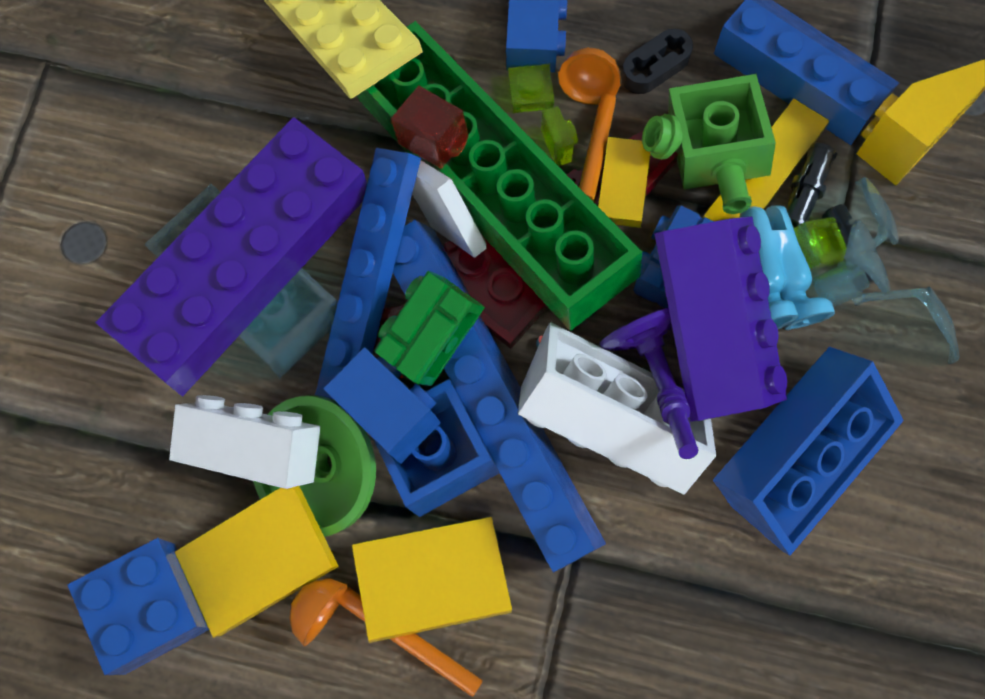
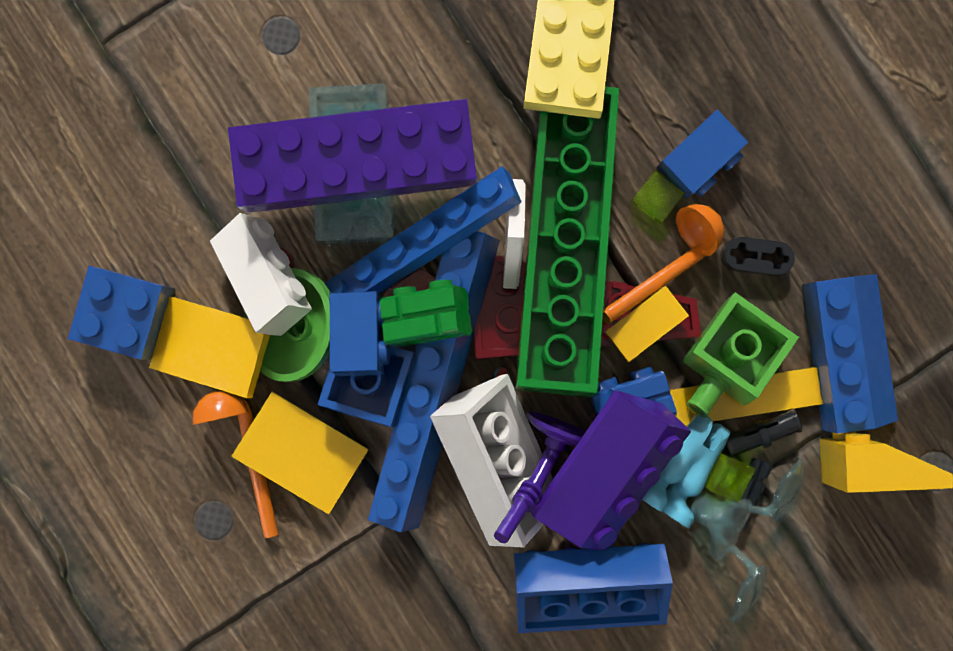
camera: 40 degrees right, 15 degrees up
(430, 127) = (549, 185): clear red brick -> none
(558, 135) = (640, 251): clear neon green plate -> none
(662, 136) = (695, 322): bright green plate -> none

